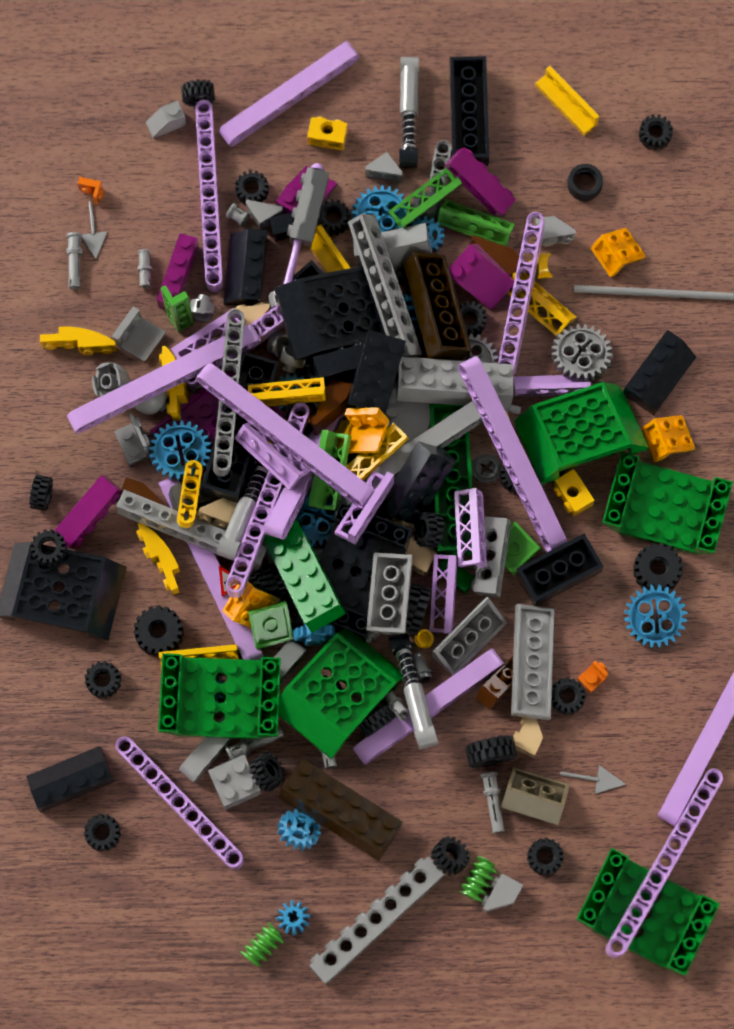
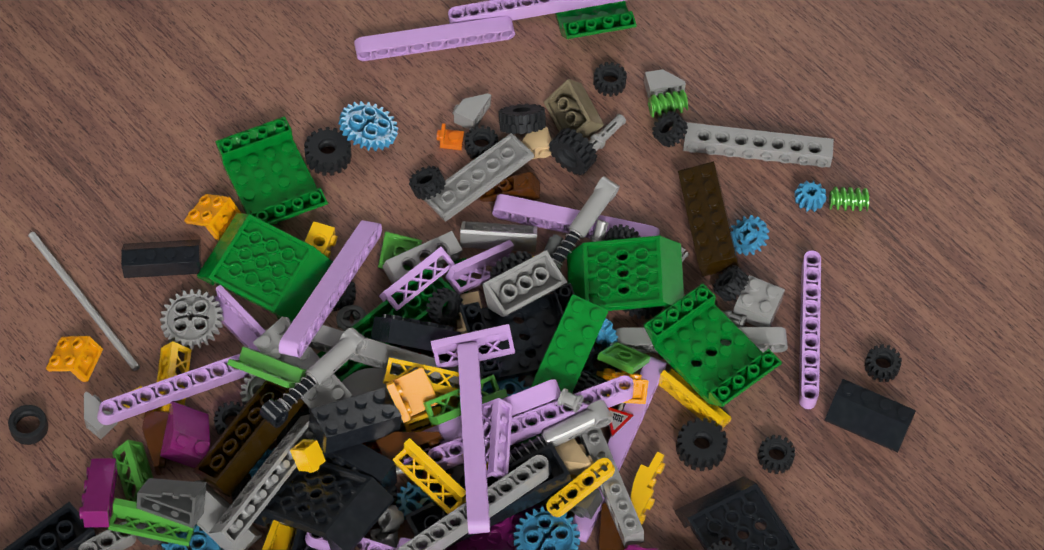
camera: 135 degrees left, 15 degrees down
(253, 529) = (570, 400): none -> light grey bush
(378, 322) = (308, 455): none -> yellow brick
(423, 212) = (173, 500): none -> dark grey wedge
(433, 372) = (350, 344): none -> piece
(487, 354) = (268, 368): none -> bright green fence
(547, 734) = (522, 118): none -> black tyre
(559, 570) = (391, 207): black brick -> none
(568, 612) = (427, 182): none -> black tyre
(604, 712) = (471, 110): none -> light grey slope
(604, 779) = (519, 84): light grey piece -> none

